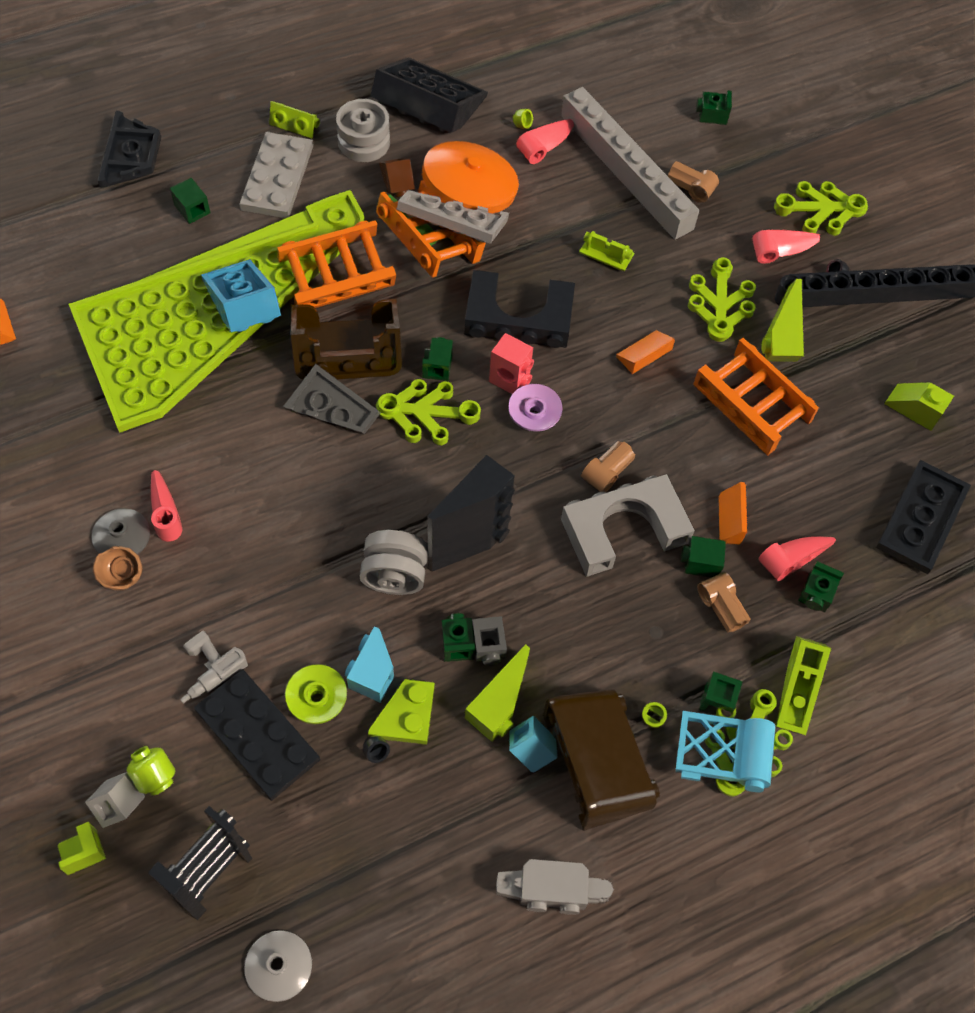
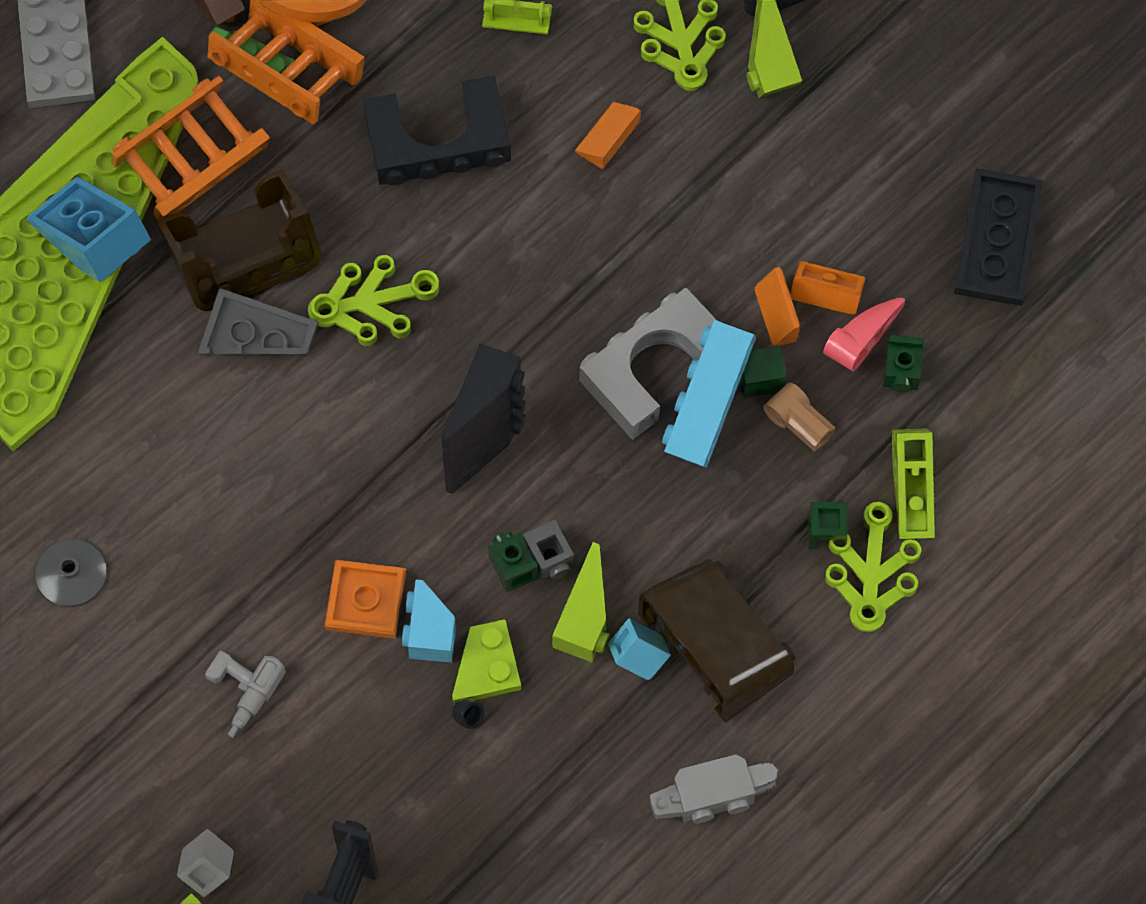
camera: 15 degrees left, 5 degrees up
(117, 568) = (92, 612): medium nougat hair -> none
(150, 770) = (232, 819): lime head -> none
(164, 510) = (109, 526): coral piece -> none
(257, 734) = (329, 742): black plate -> none
(312, 681) = (373, 661): lime dish -> none
(332, 629) = (365, 599): none -> orange tile
(394, 562) = (410, 499): light grey wheel -> none
(438, 359) = (362, 230): dark green brick -> none
(453, 215) = (323, 37): light grey wing -> none
(511, 364) = (456, 210): coral brick -> none
(535, 398) = (502, 240): lavender dish -> none
(604, 471) = (612, 305): medium nougat piece -> none
(657, 709) = (762, 564): lime hinge -> none
(658, 559) = (709, 394): none -> medium azure brick
(748, 417) = (759, 181): orange fence -> none
(752, 750) = (880, 577): medium azure piece -> none
(776, 512) = (827, 288): none -> orange slope
(920, 402) = (956, 93): lime slope -> none

